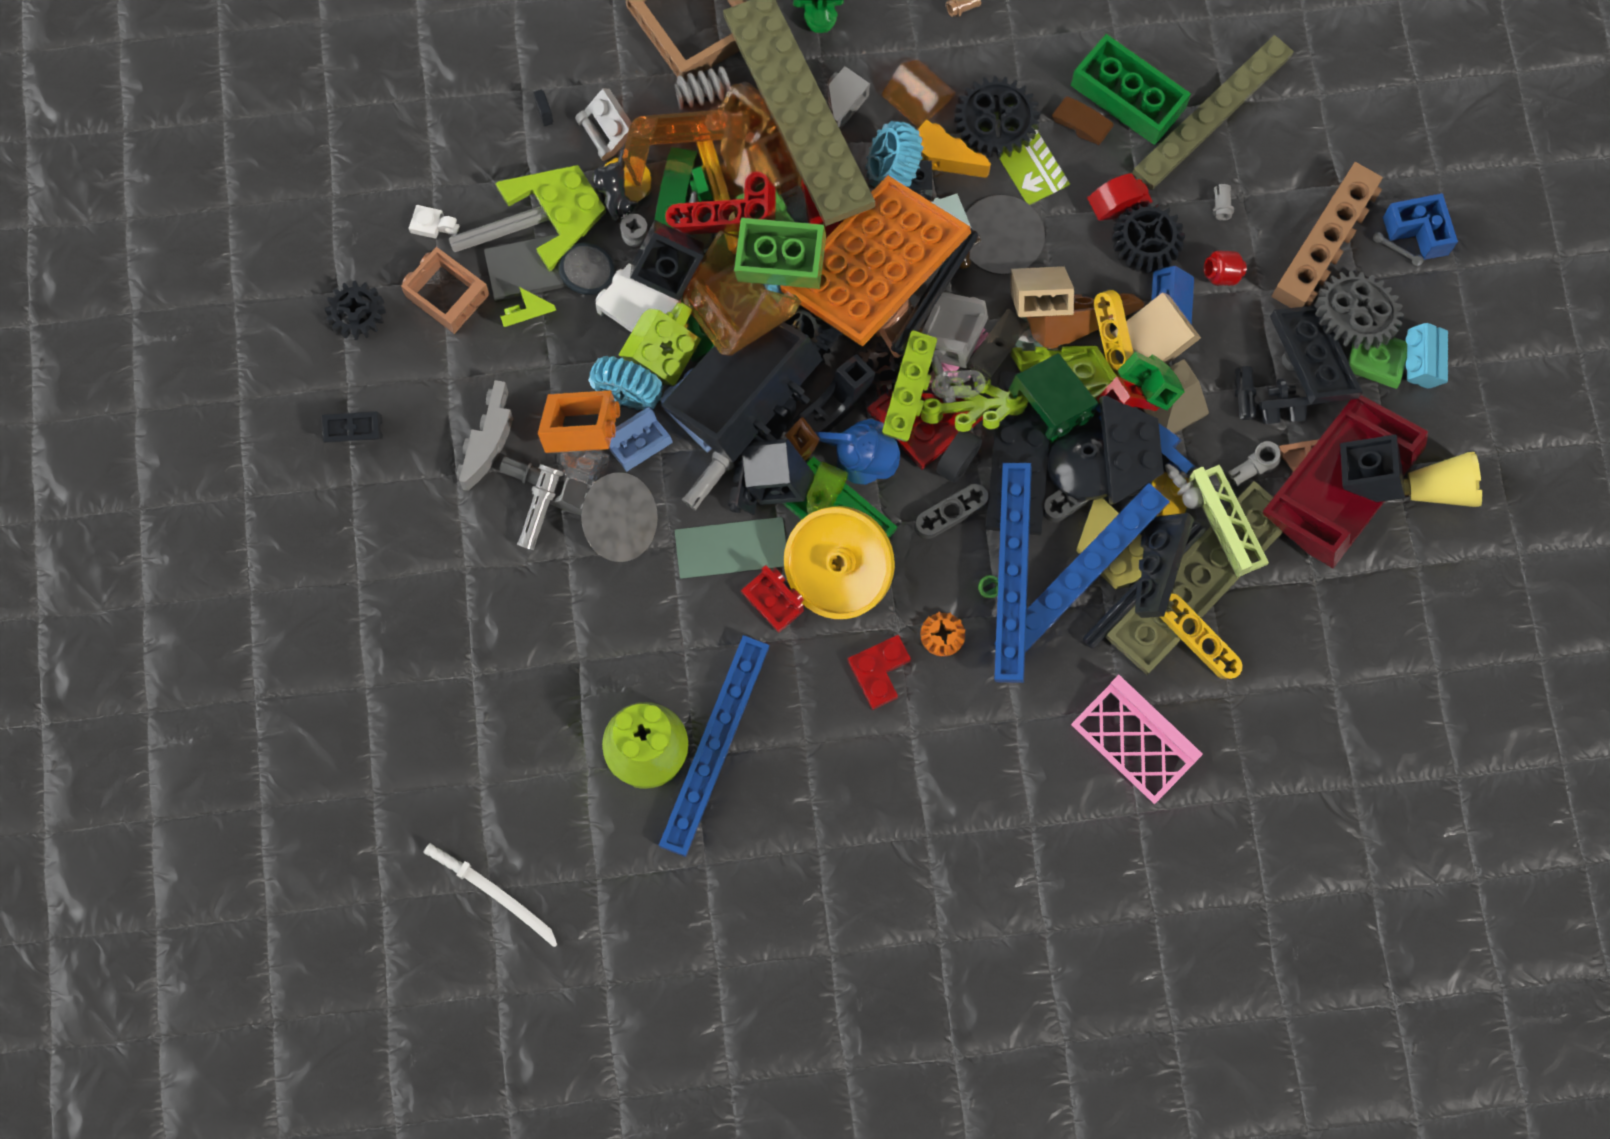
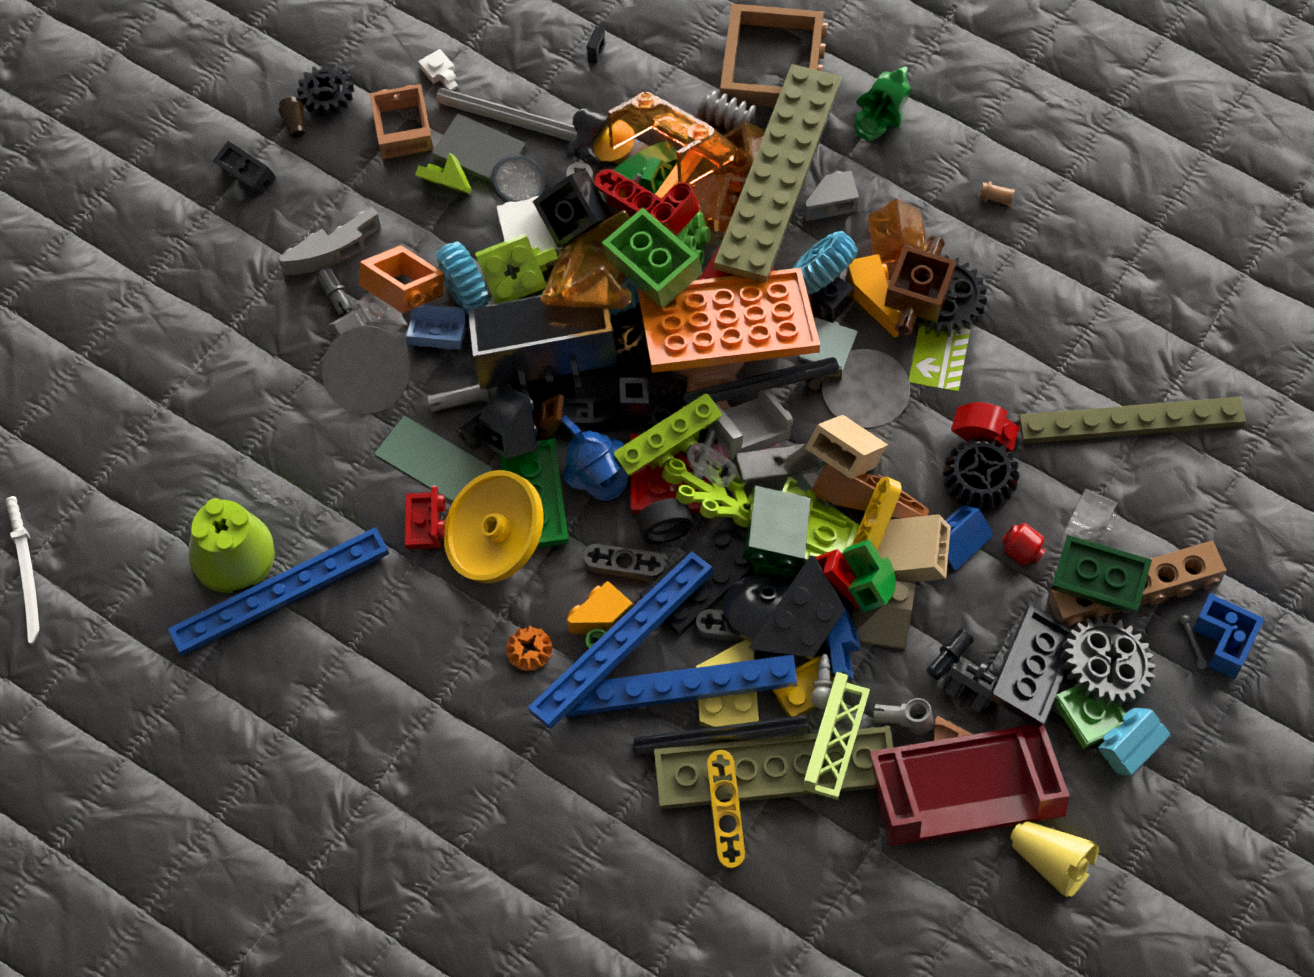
camera: 45 degrees right, 10 degrees down
(349, 353) = (293, 115): none -> dark brown cone
(543, 493) = (327, 313): light grey pin -> none
(566, 201) = (546, 121): lime wing -> none
(610, 118) = (636, 81): light grey plate -> none
(826, 487) = (538, 463): clear neon green piece -> none
(872, 668) = (452, 629): red plate -> none
(974, 562) = (601, 610): none -> light orange slope
(986, 120) = (920, 284): none -> reddish brown brick
(1086, 121) = (1012, 348): reddish brown slope -> none
(1130, 89) = (1071, 350): green brick -> none
(1154, 721) = (629, 850): bright pink fence -> none
(1162, 555) = (737, 725): black wing -> none
(1223, 208) = (1067, 499): light grey pin -> none
(1252, 211) = (1091, 517): none -> clear slope
(1307, 248) = (1101, 574): none -> dark green plate
(1373, 468) = (995, 791): black slope -> none

